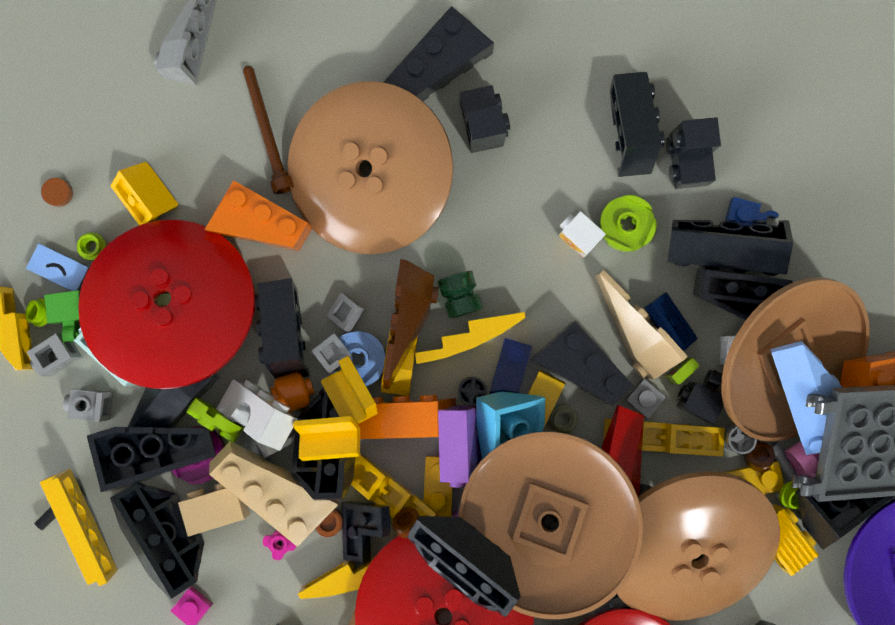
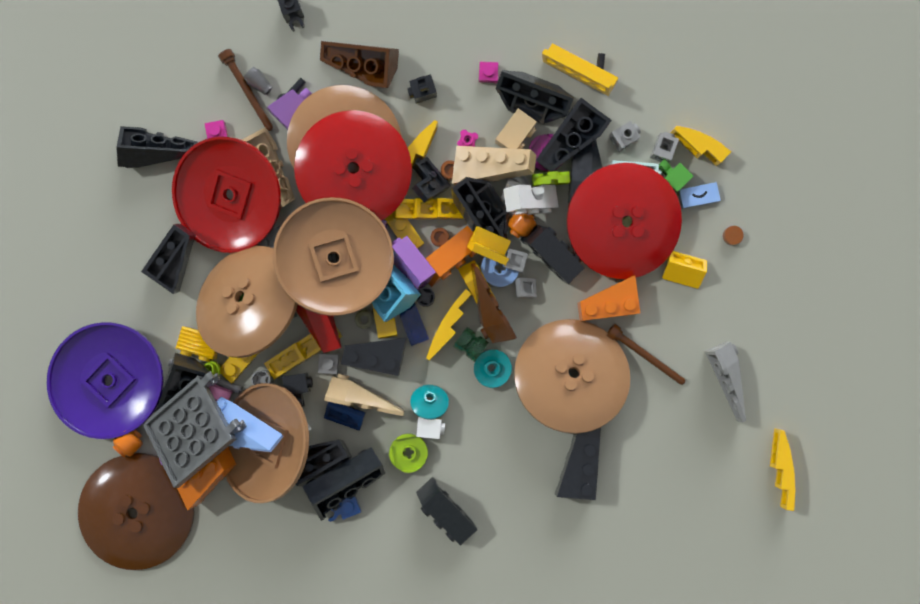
camera: 145 degrees right, 0 degrees up
(36, 312) = (691, 163): lime plate -> none
(84, 243) = (695, 216): lime plate -> none
(328, 438) = (482, 214): yellow panel -> none
(401, 450) = (439, 236): none -> dark orange tile
(404, 521) = (407, 201): reddish brown tile -> none
(452, 235) = (499, 374): none -> teal dish
(467, 561) = (363, 205): black wedge -> none
(484, 118) = (531, 451): black brick -> none
(567, 255) = (429, 408): none -> teal dish
(682, 371) = (319, 393): lime tile -> none
(692, 152) = (401, 518): black brick -> none
(760, 458) = (243, 378): reddish brown tile -> none

